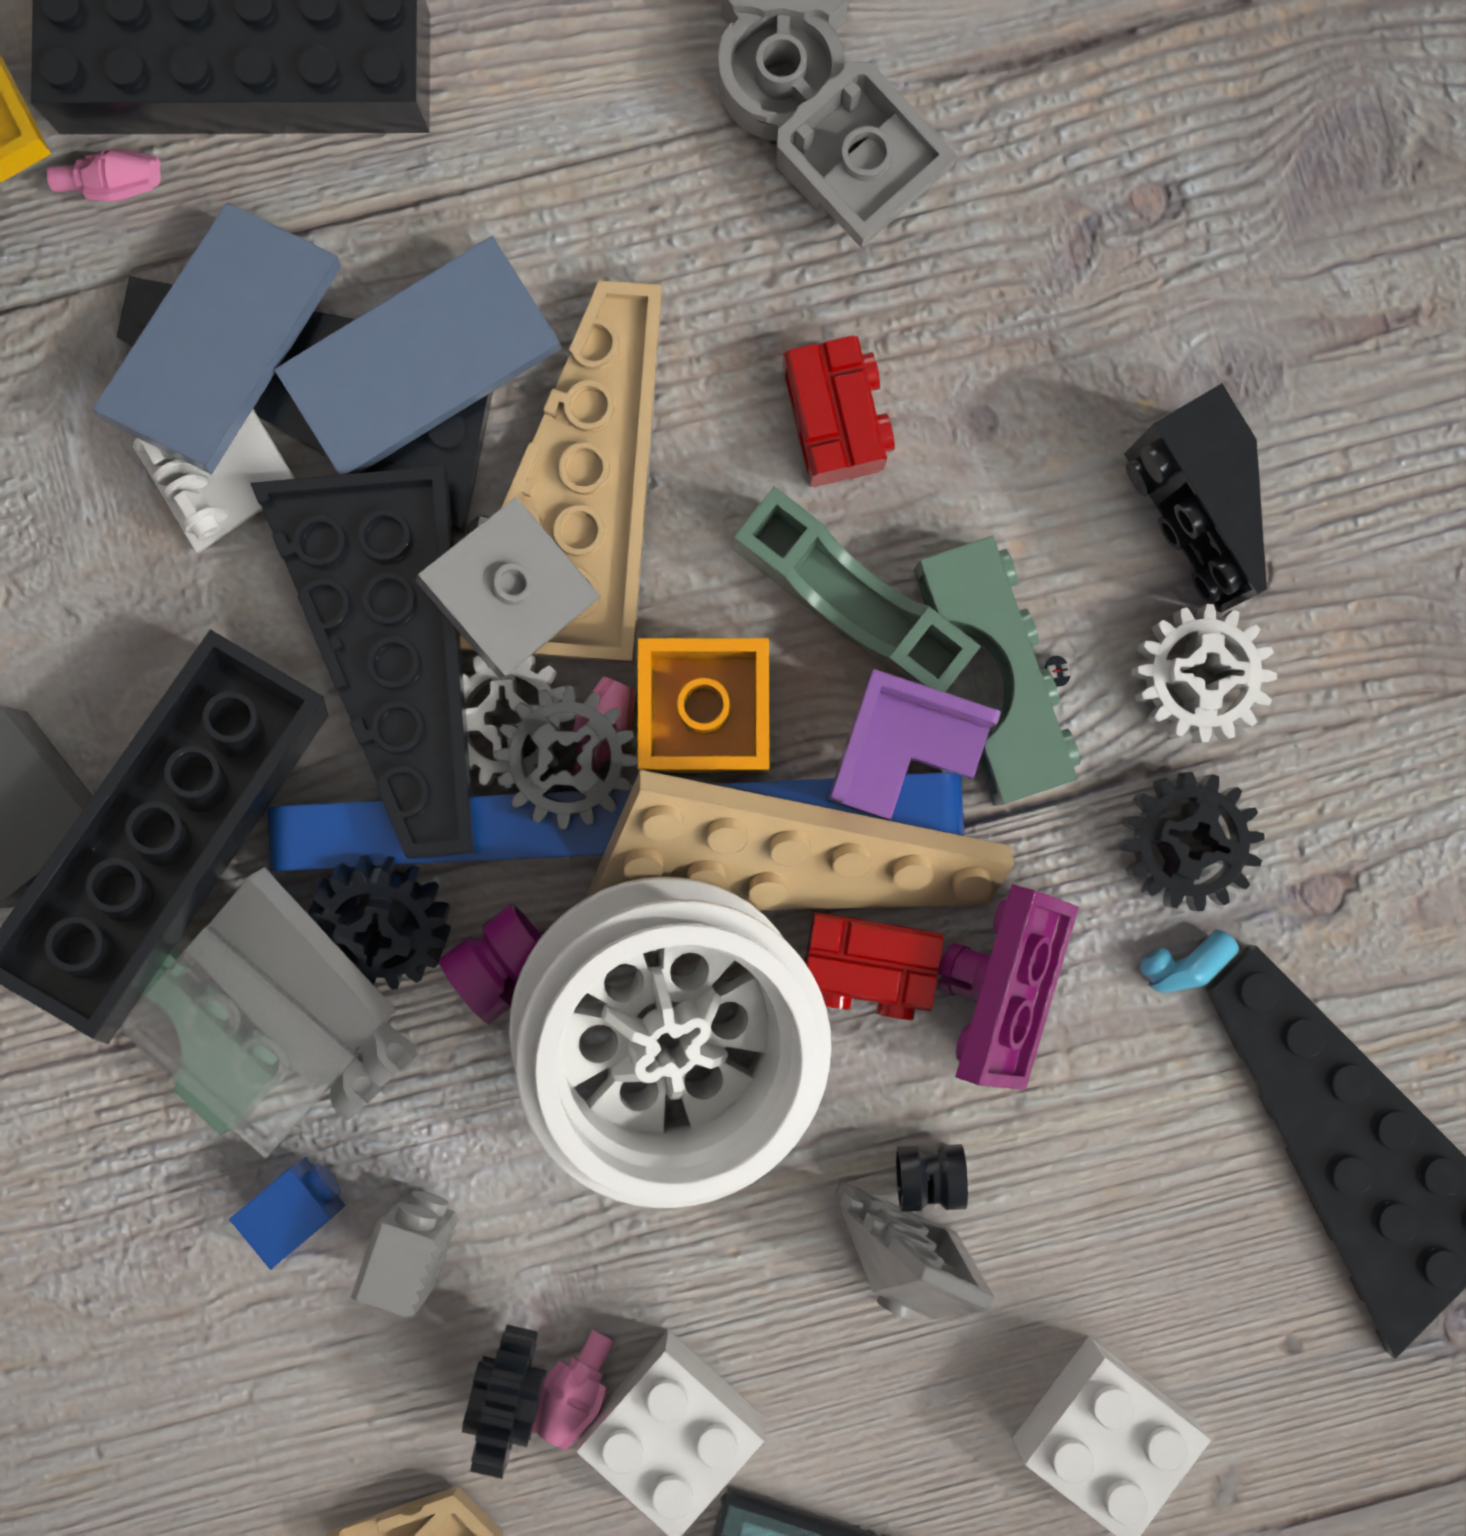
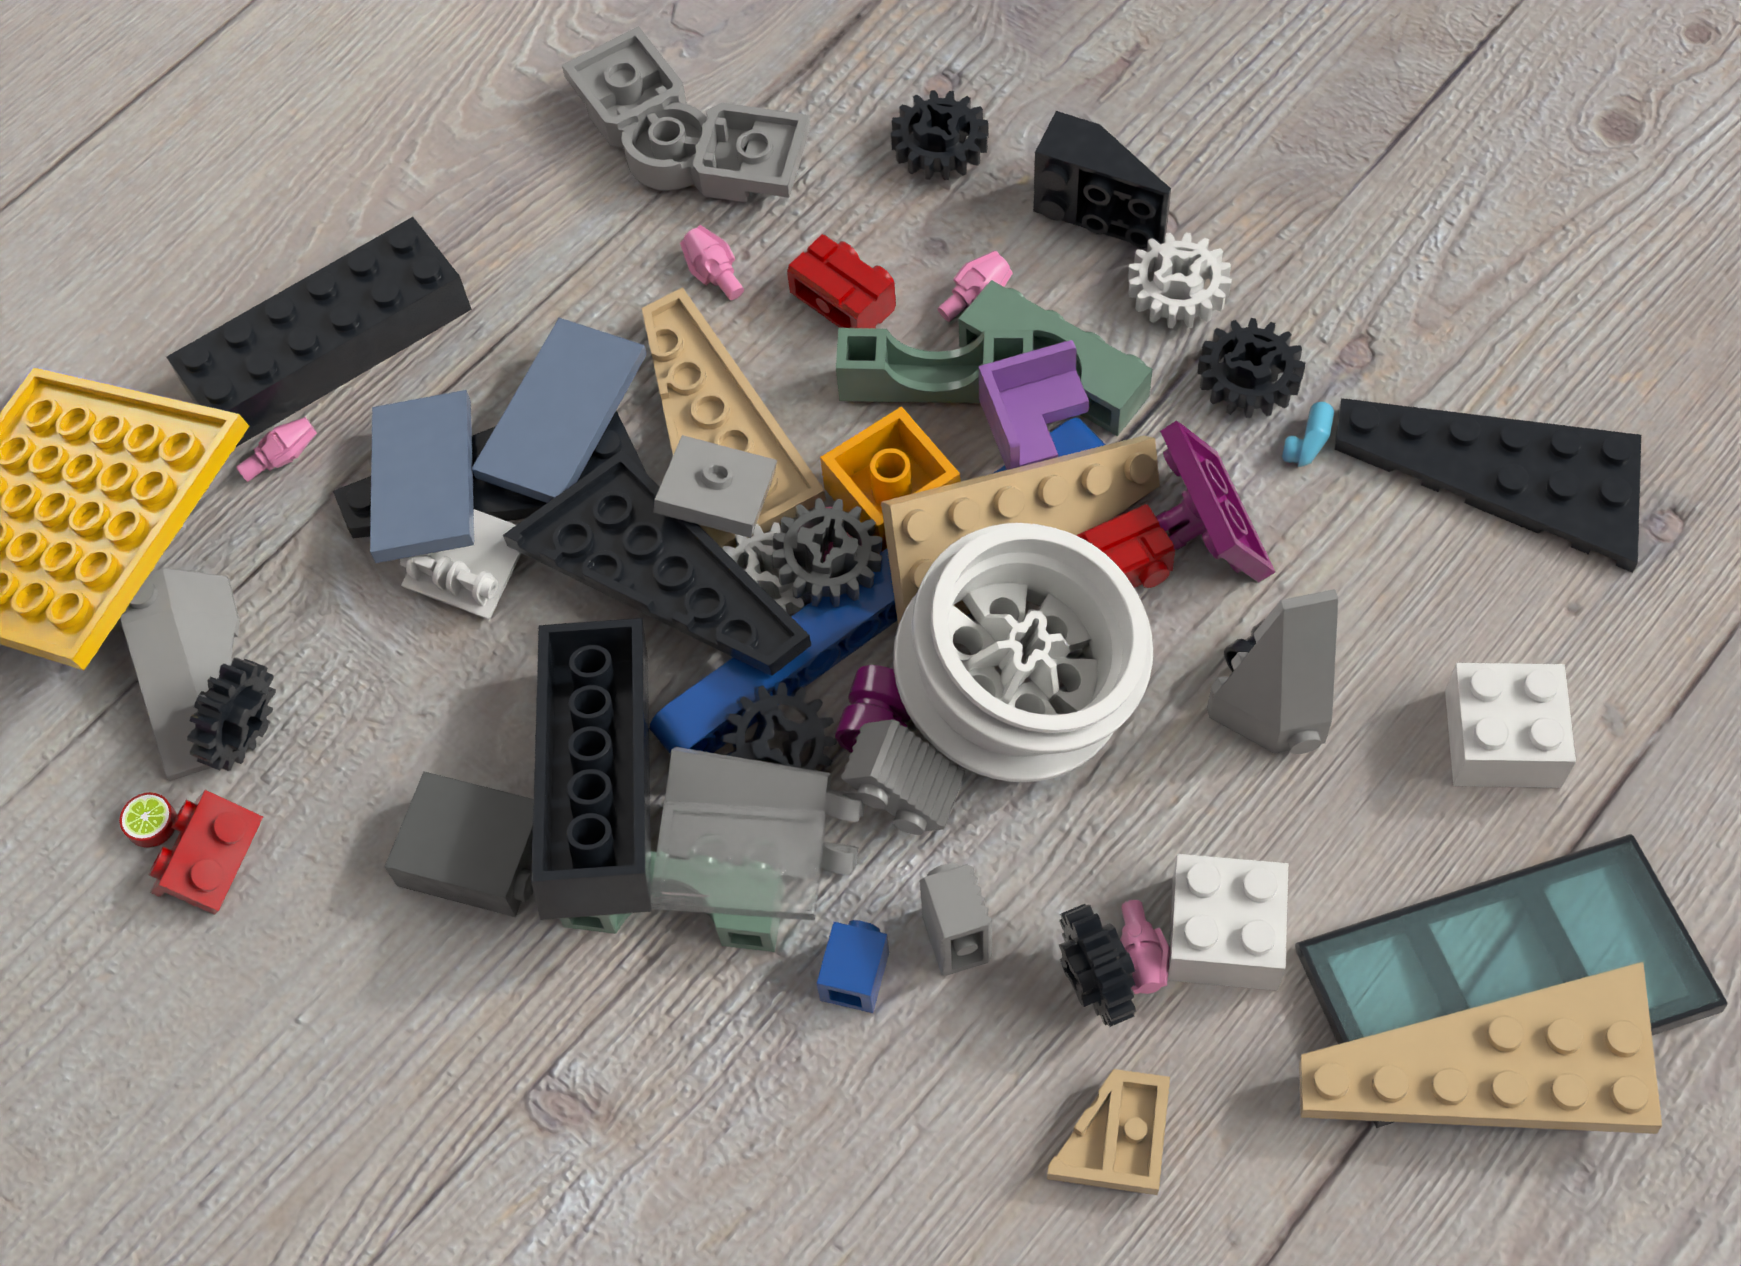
camera: 30 degrees left, 25 degrees down
(458, 1066) = (903, 777): none -> light grey brick
(721, 266) = (711, 260): none -> bright pink piece
(984, 513) = (972, 280): none -> bright pink piece
(1116, 269) = (939, 135): none -> black gear

